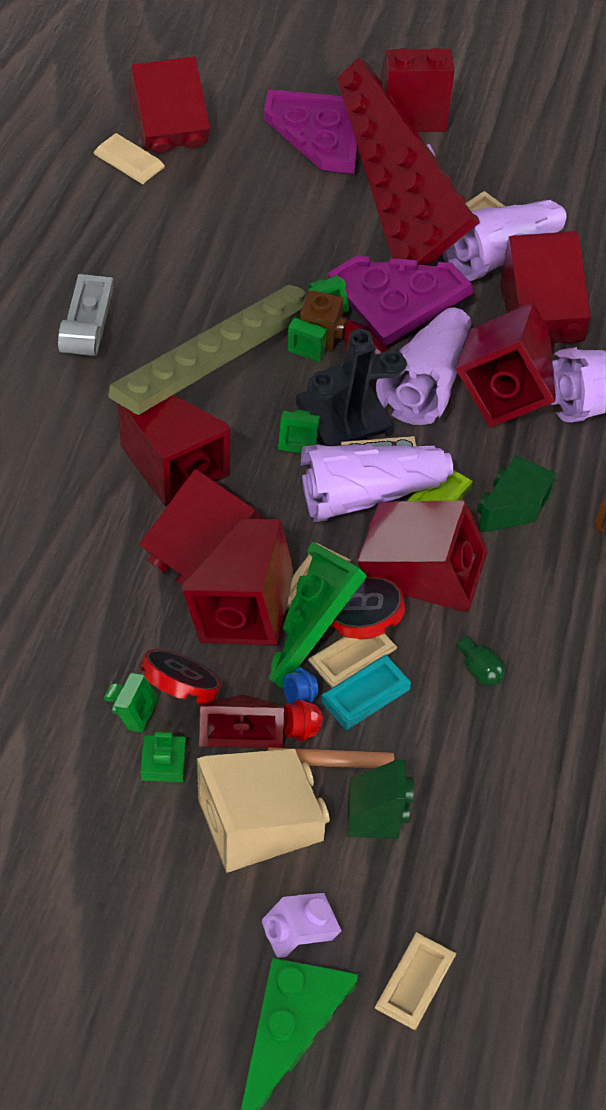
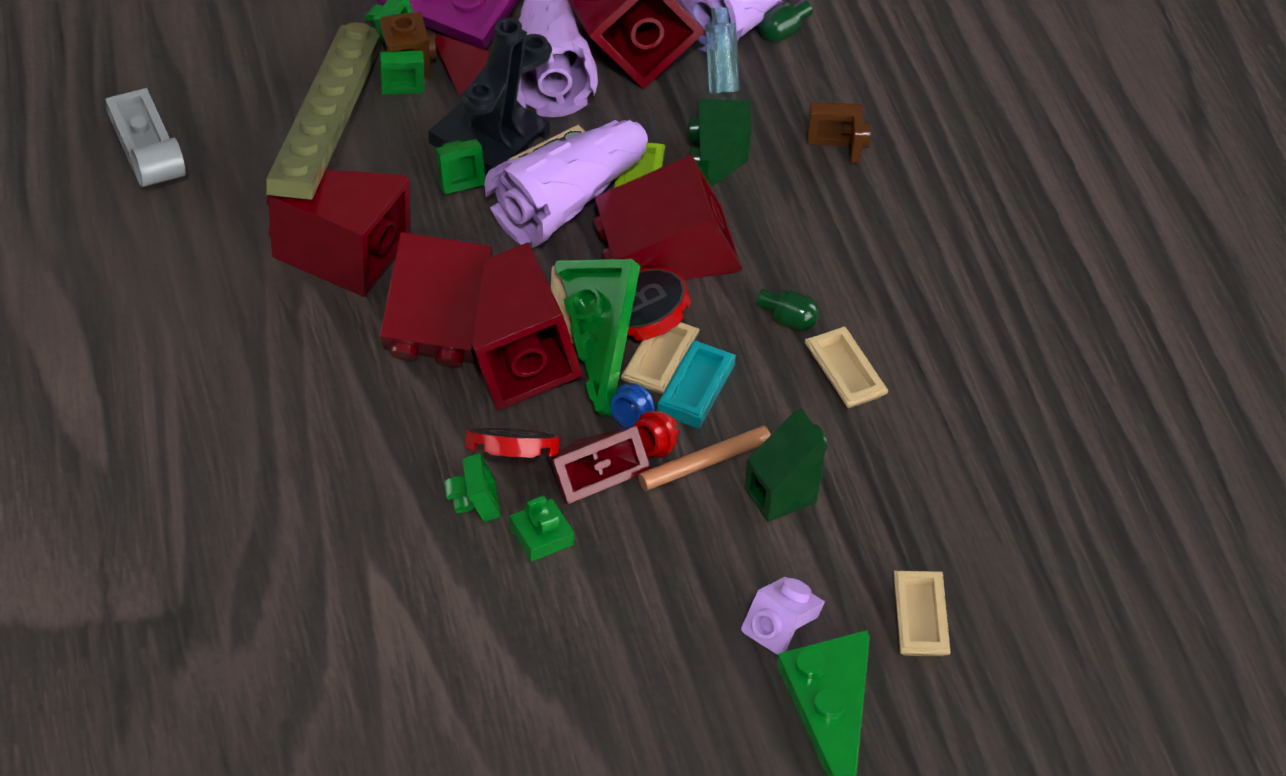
camera: 30 degrees left, 5 degrees down
(259, 805) = (671, 527): tan slope -> none
(495, 733) = (846, 367): none -> tan tile
(561, 424) = (722, 53): none -> clear light blue cylinder

